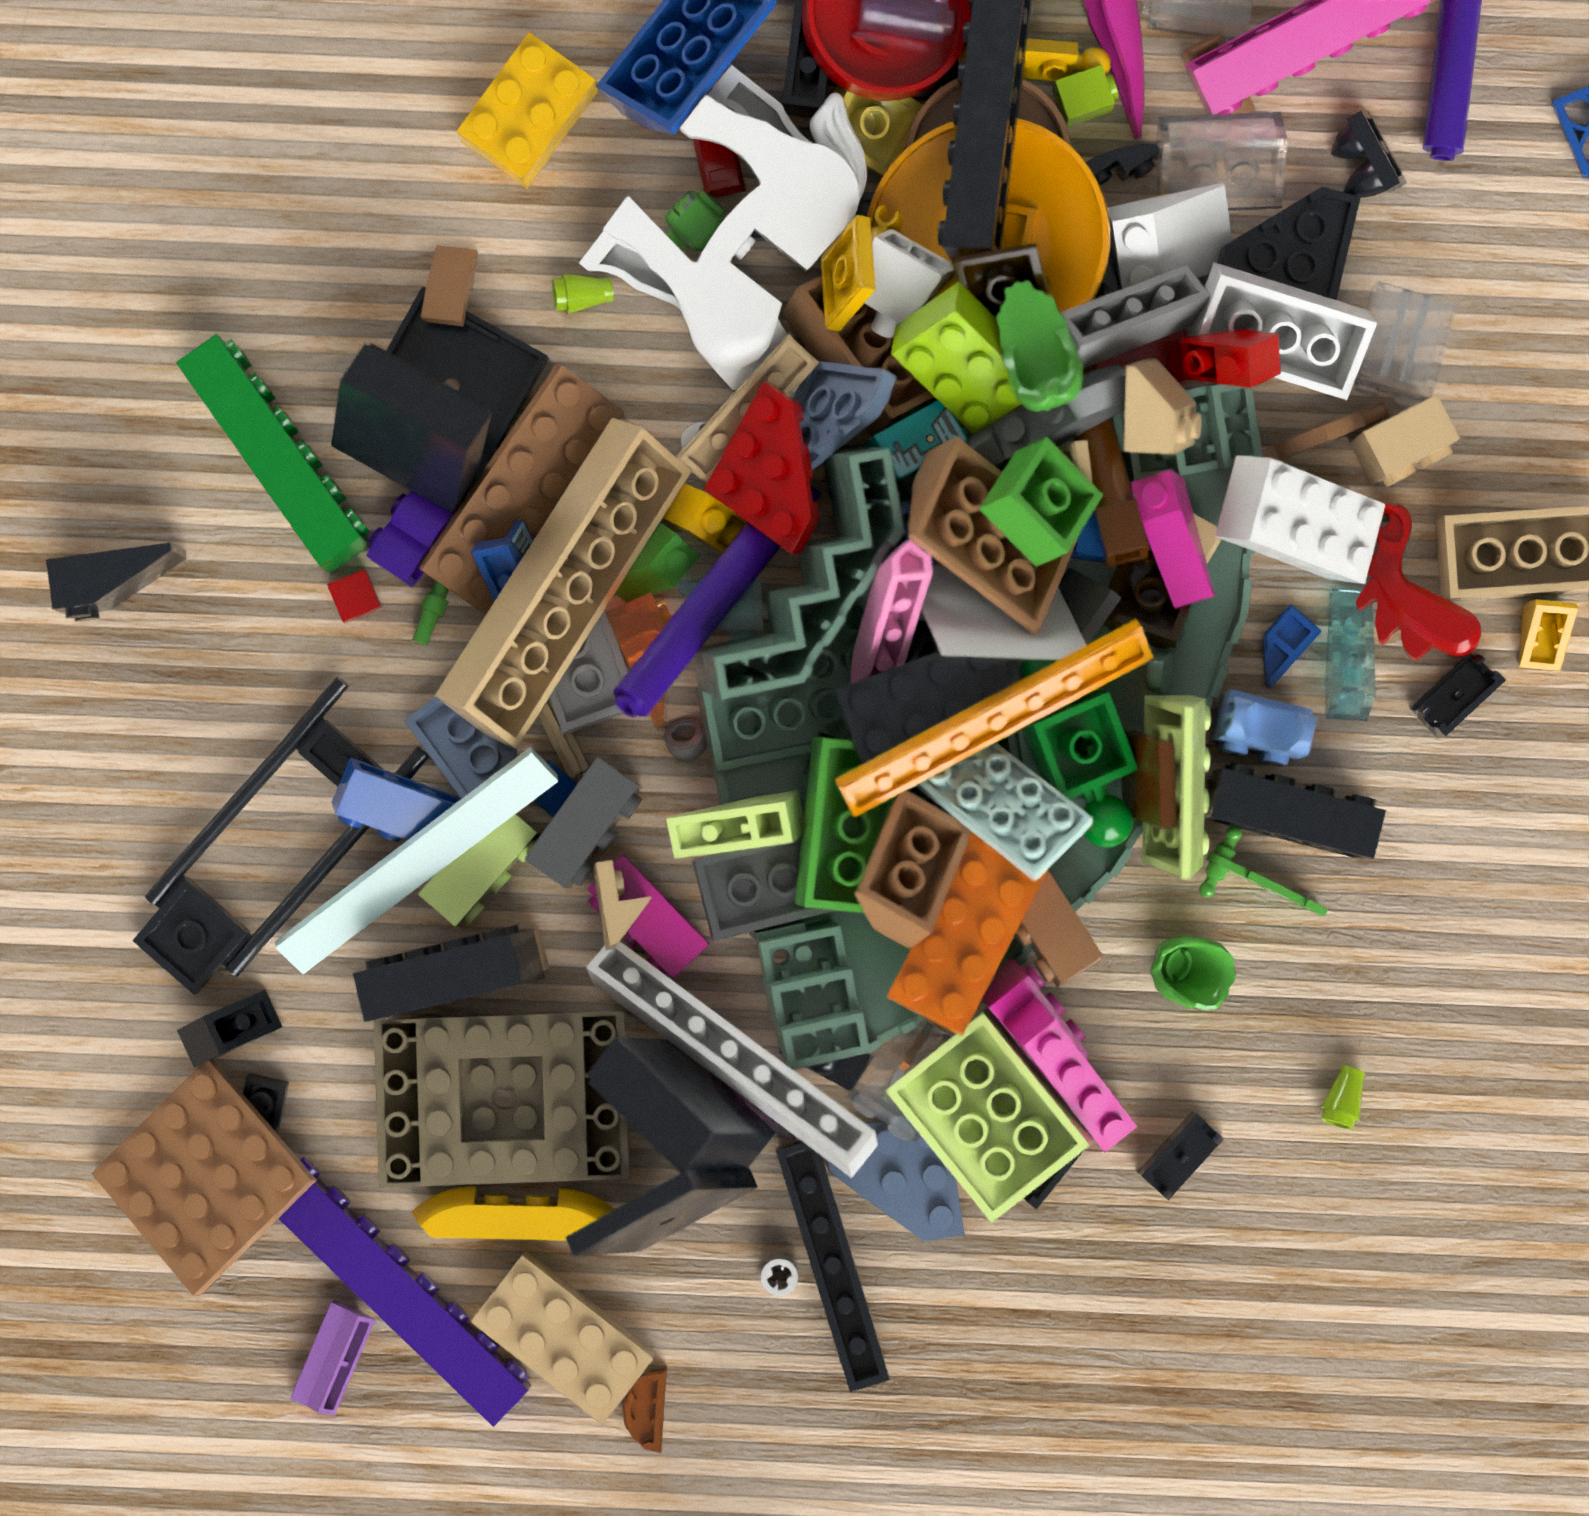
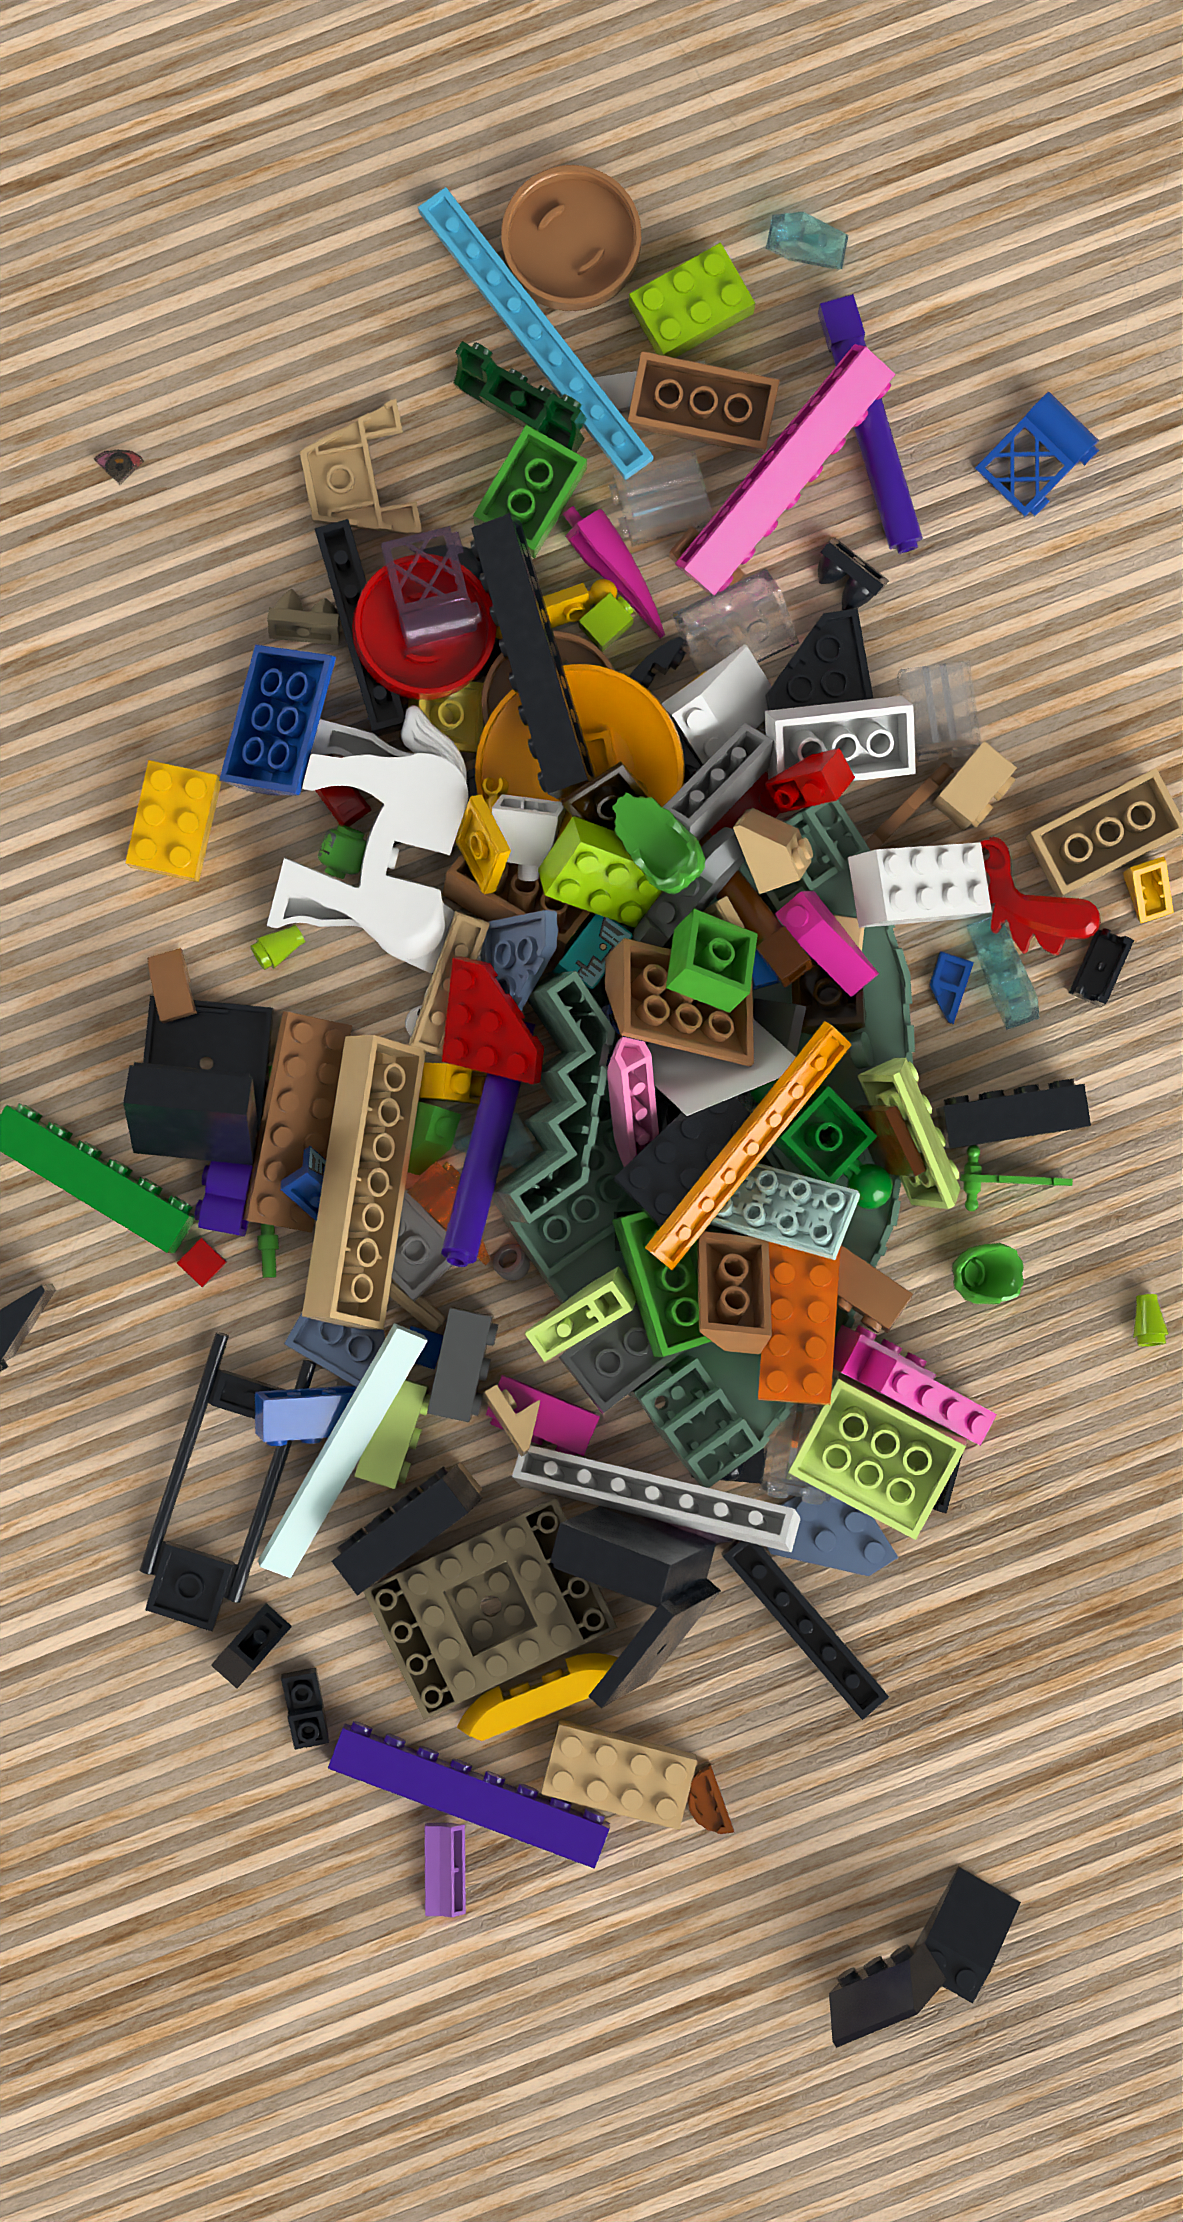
camera: 25 degrees left, 0 degrees up
(203, 1177) = (282, 1771): medium nougat plate -> none
(767, 1272) = (756, 1653): white gear -> none
(1180, 1155) = (1040, 1422): black hinge -> none
(1263, 727) = (960, 1058): medium blue brick -> none

